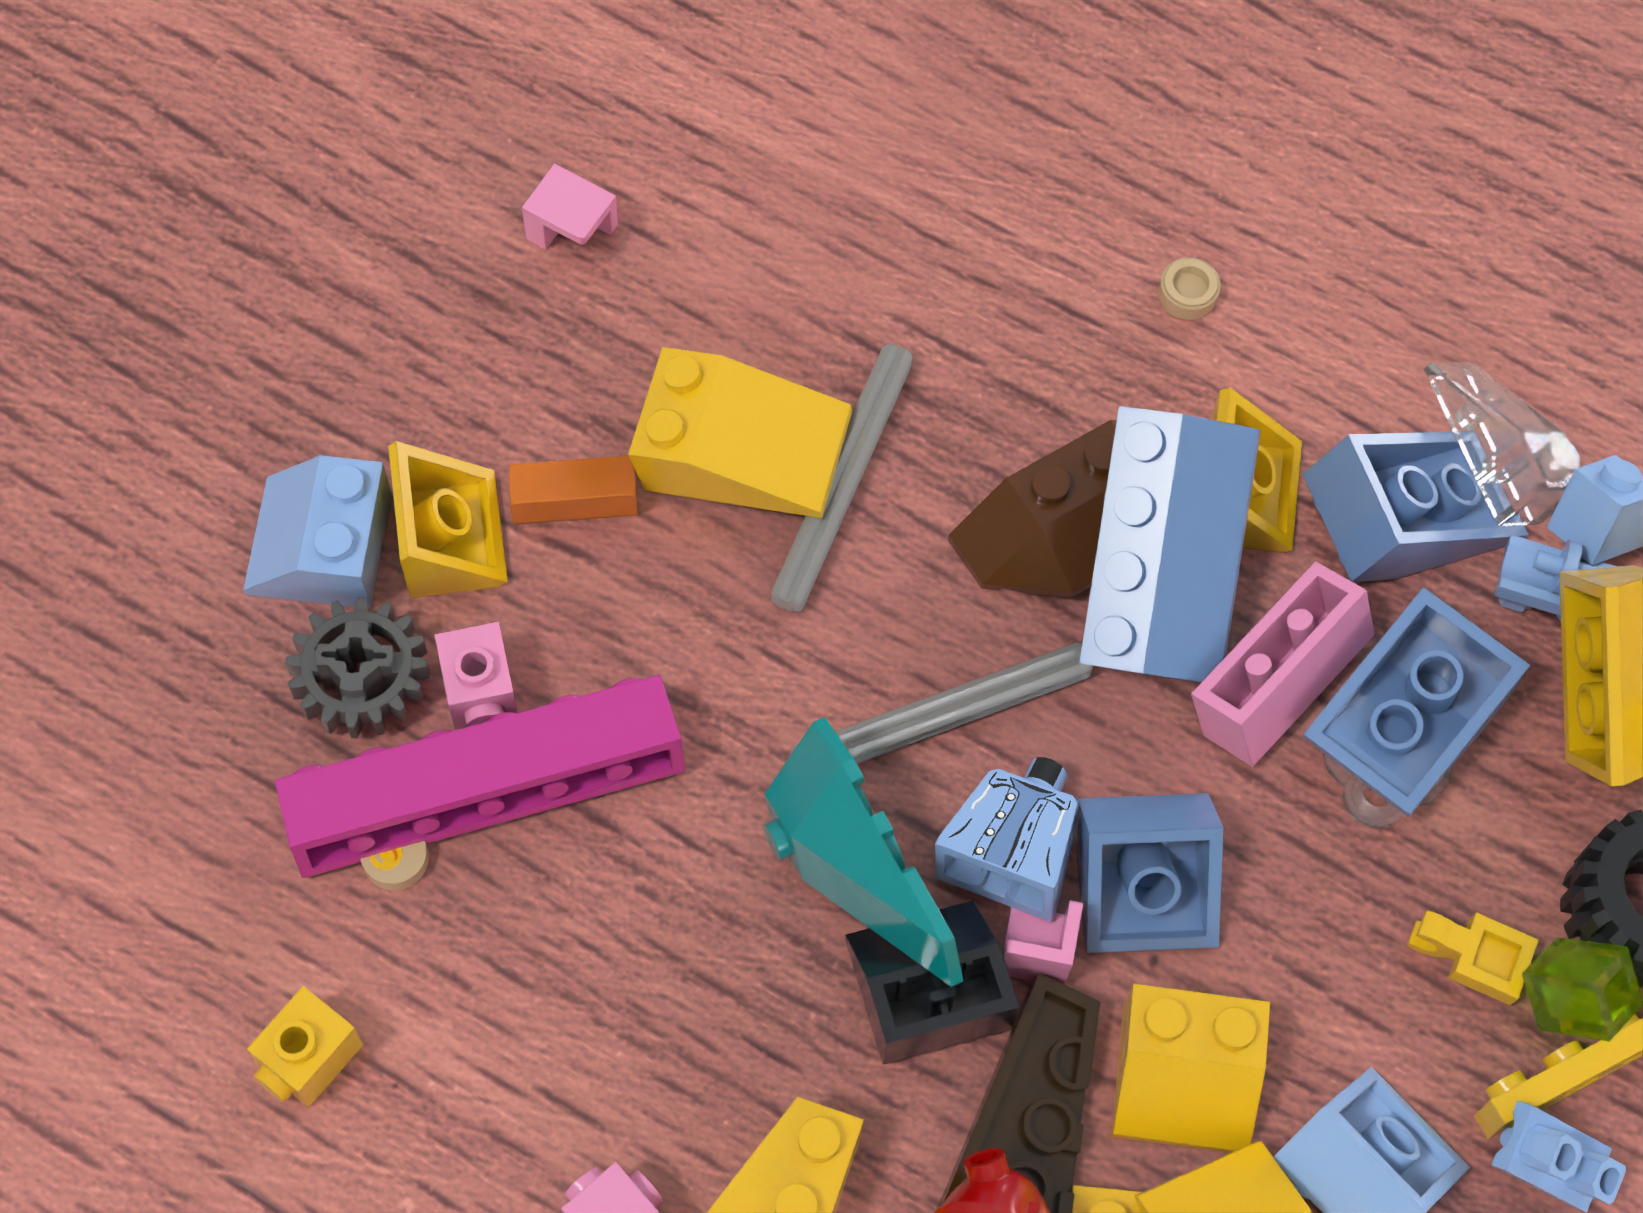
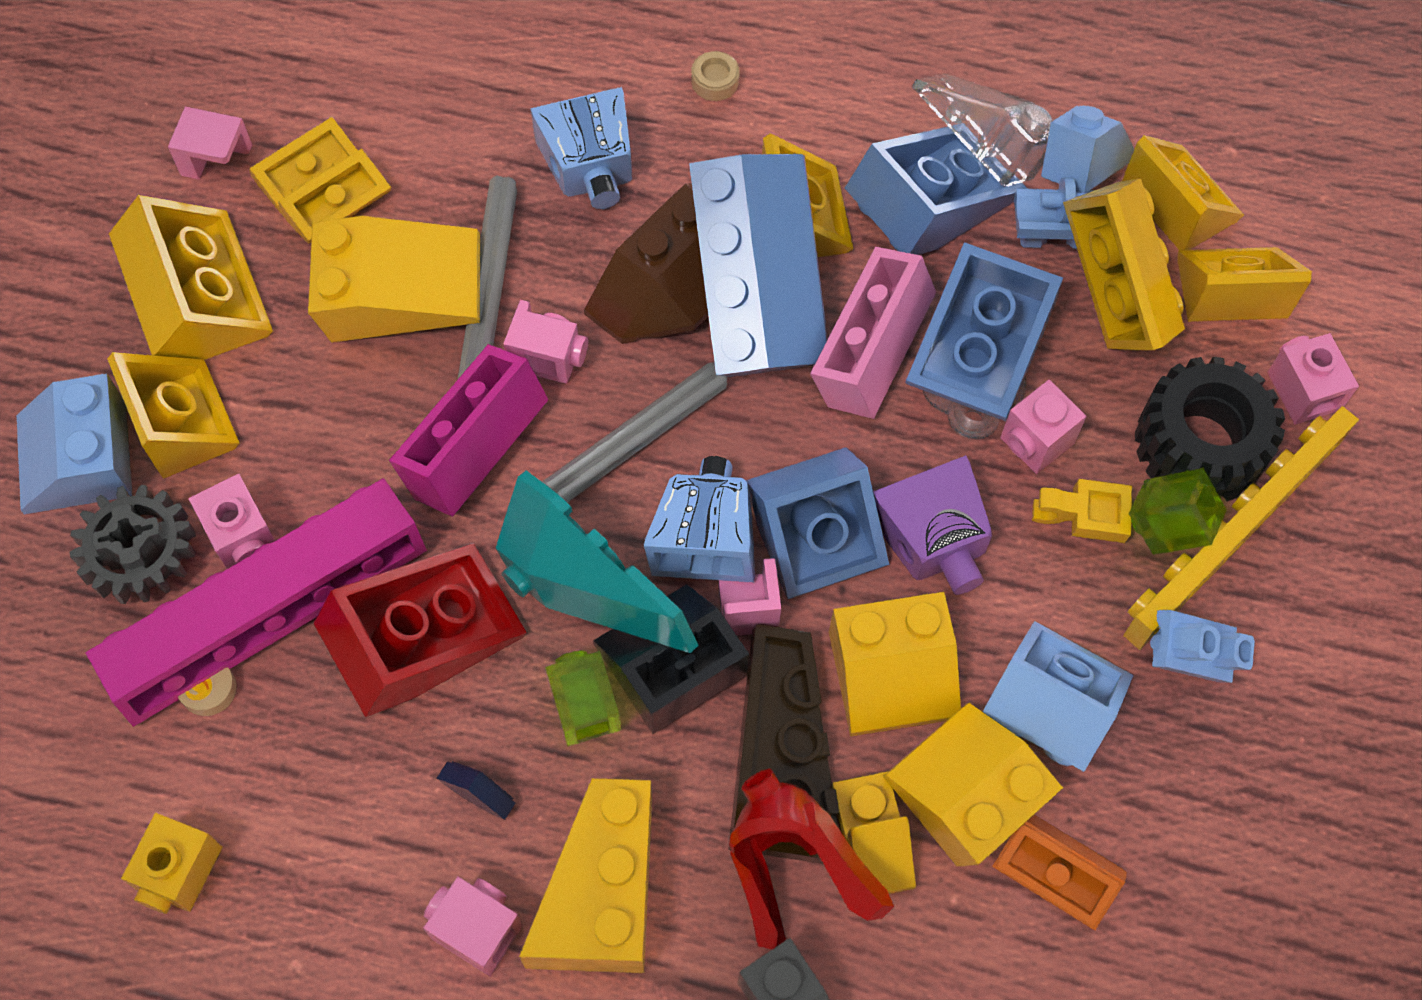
camera: 15 degrees left, 0 degrees up
(502, 370) = (188, 279): none -> yellow slope
(572, 489) = (272, 357): orange slope -> none
(649, 859) = (416, 627): none -> red slope
(664, 1067) = (477, 789): none -> dark blue tile
(685, 290) = (319, 178): none -> yellow slope
(774, 645) = (469, 429): none -> dark pink brick
(814, 997) = (583, 696): none -> clear neon green brick
(889, 565) = (547, 342): none -> bright pink brick
(1009, 335) = (586, 144): none -> light blue torso
(1289, 916) = (937, 523): none -> medium lavender torso
(1452, 836) = (1043, 426): none -> bright pink brick

